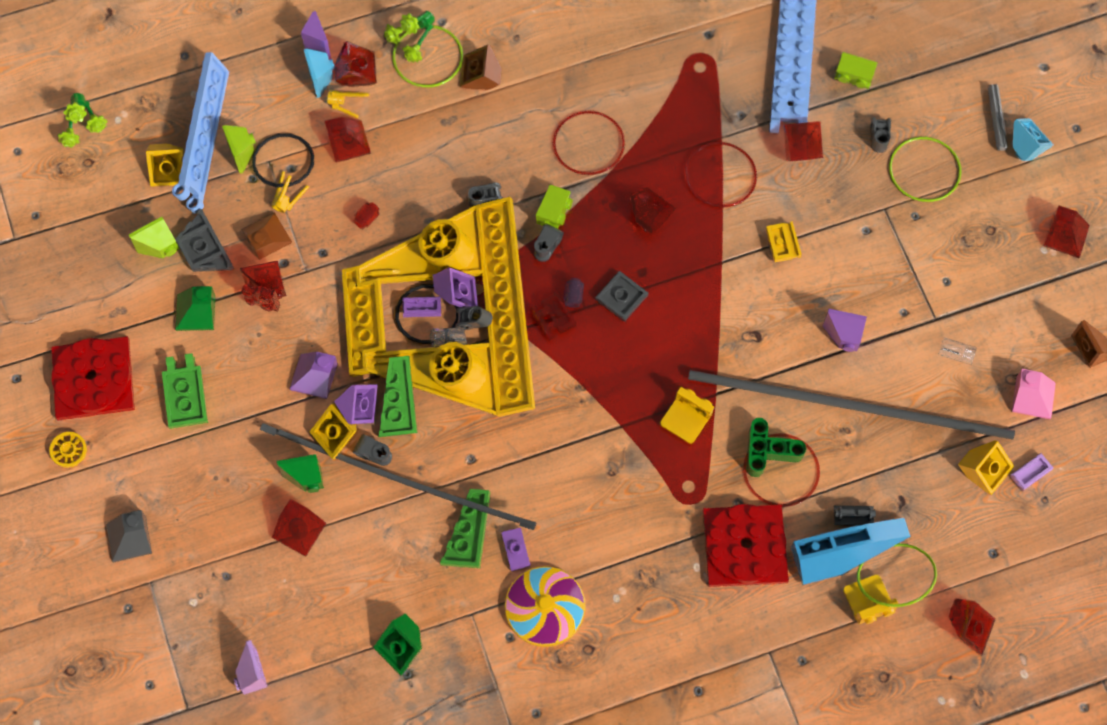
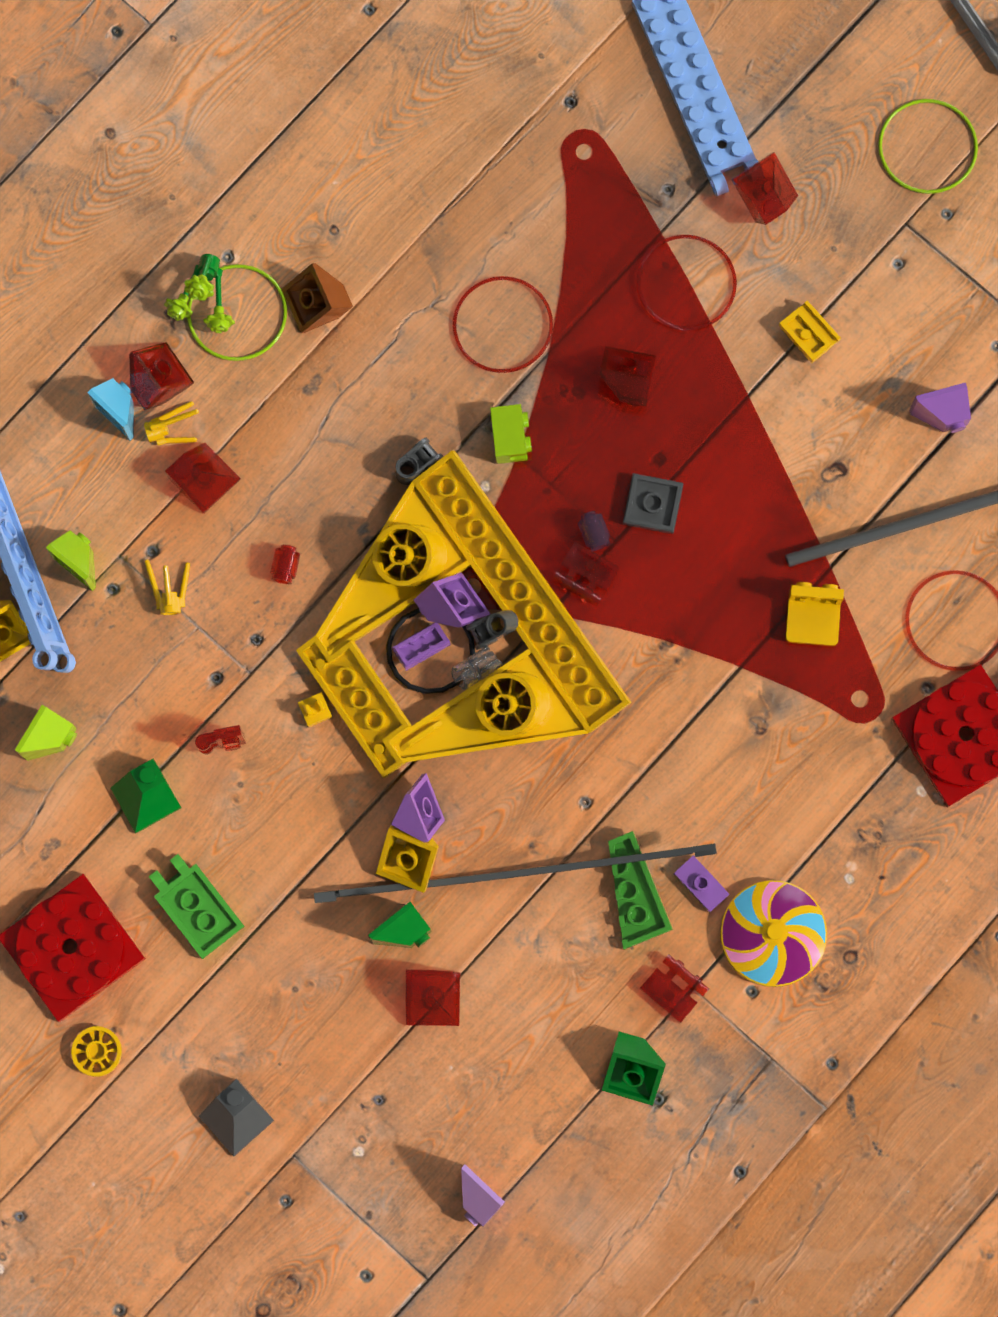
camera: 25 degrees left, 10 degrees up
(202, 246) = (105, 710): dark grey wing -> none
(265, 275) = (212, 713): clear red slope -> none
(266, 236) = (175, 654): dark orange slope -> none
(274, 137) = (120, 511): black piece -> none
(314, 35) = (86, 364): medium lavender slope -> none
(314, 374) = (338, 800): medium lavender slope -> none
(332, 312) = (315, 709): none -> yellow tile
(369, 449) = (460, 857): dark grey piece -> none
(399, 406) = (465, 783): bright green wing -> none
(452, 608) = (668, 994): none -> clear red plate
(547, 242) = (526, 479): dark grey piece -> none
(767, 452) = (928, 604): green beam -> none
(855, 70) = (779, 60): lime brick -> none
(880, 130) = (851, 123): dark grey piece -> none

